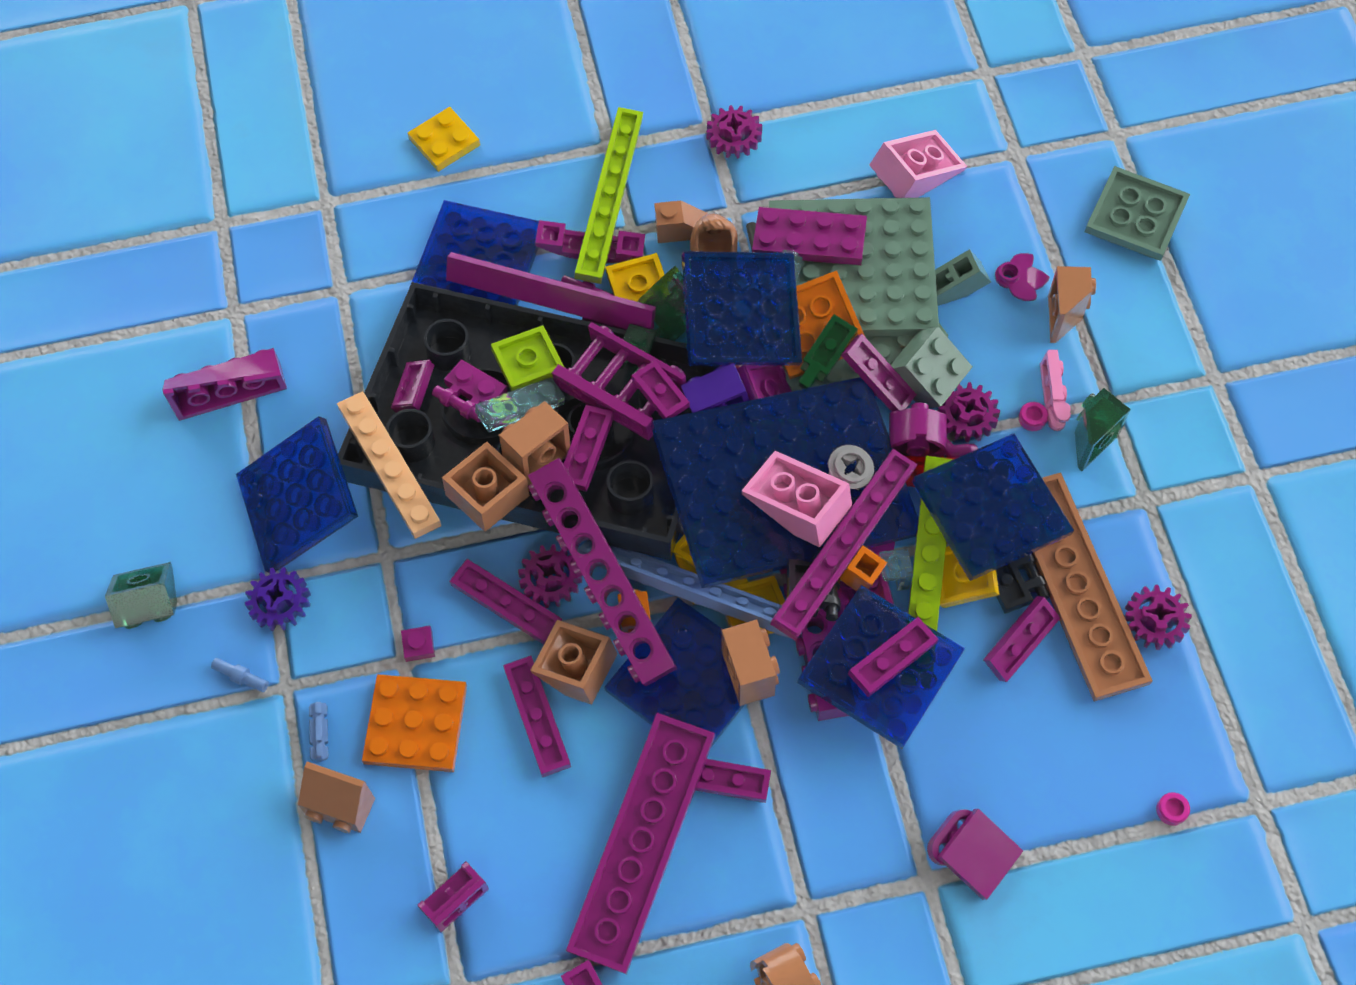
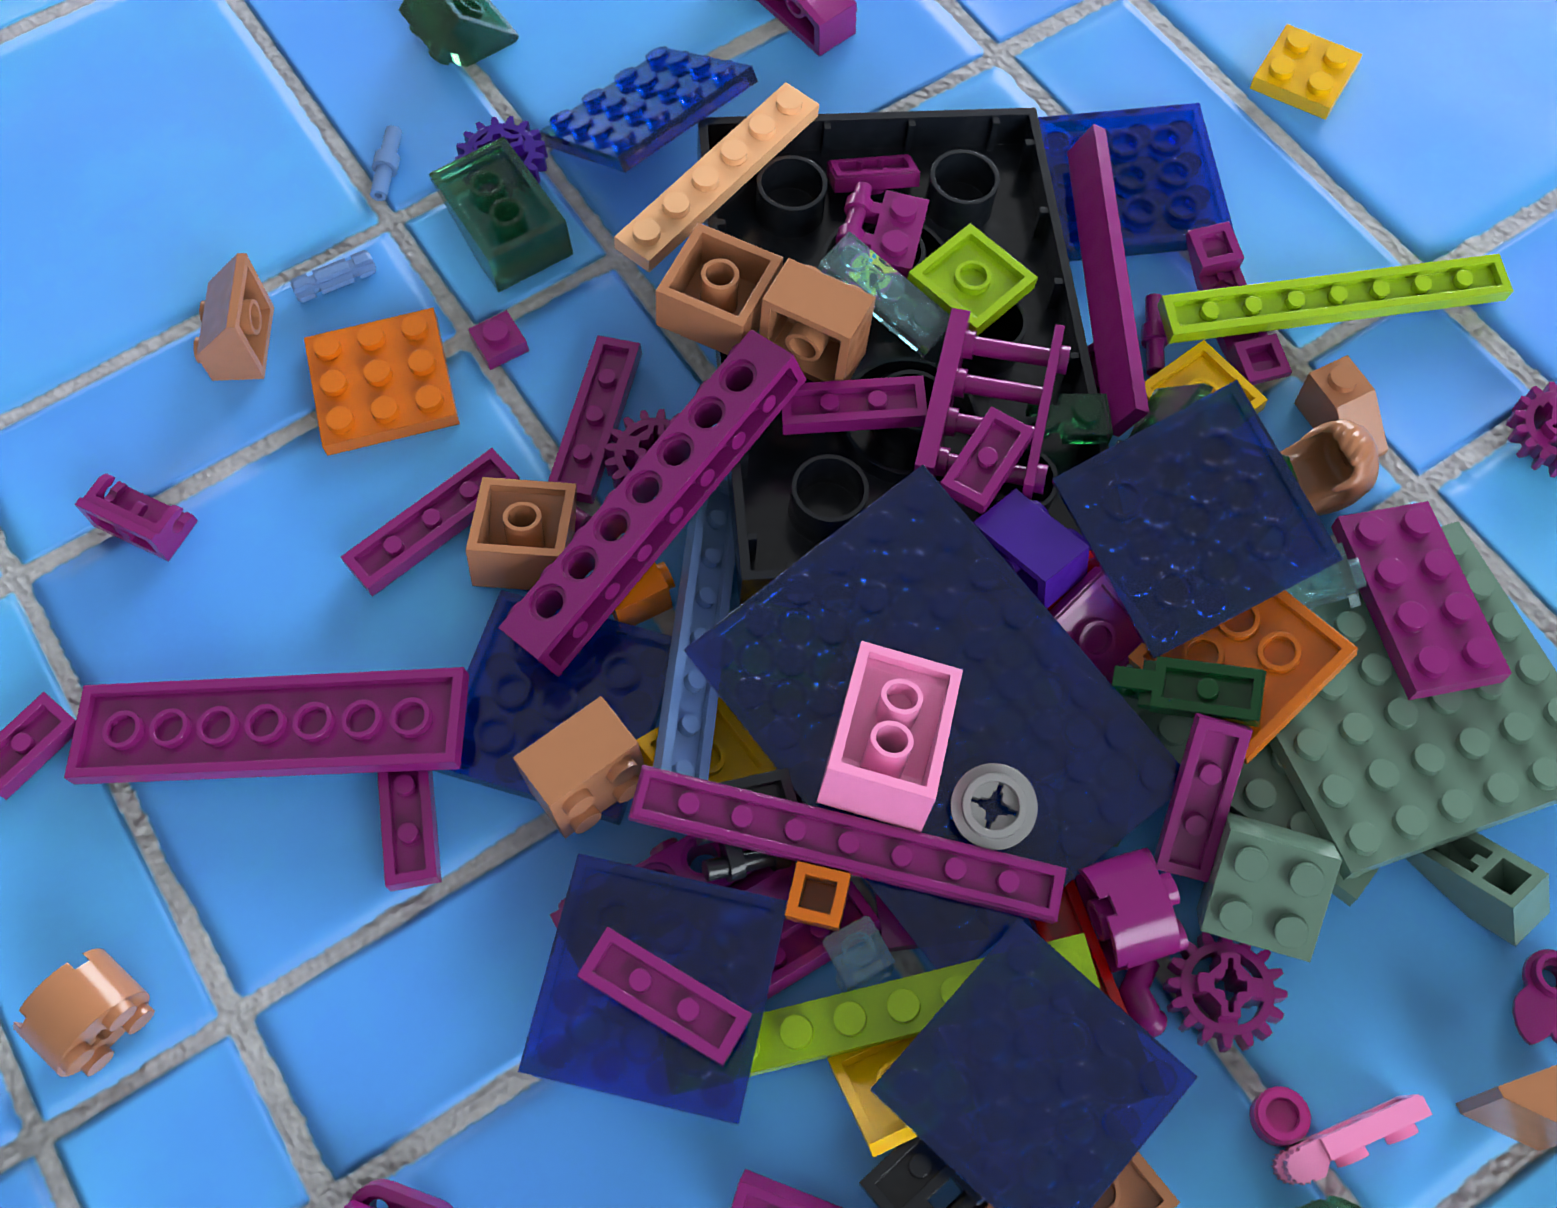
camera: 70 degrees right, 0 degrees up
(330, 607) = (502, 214): none -> slope

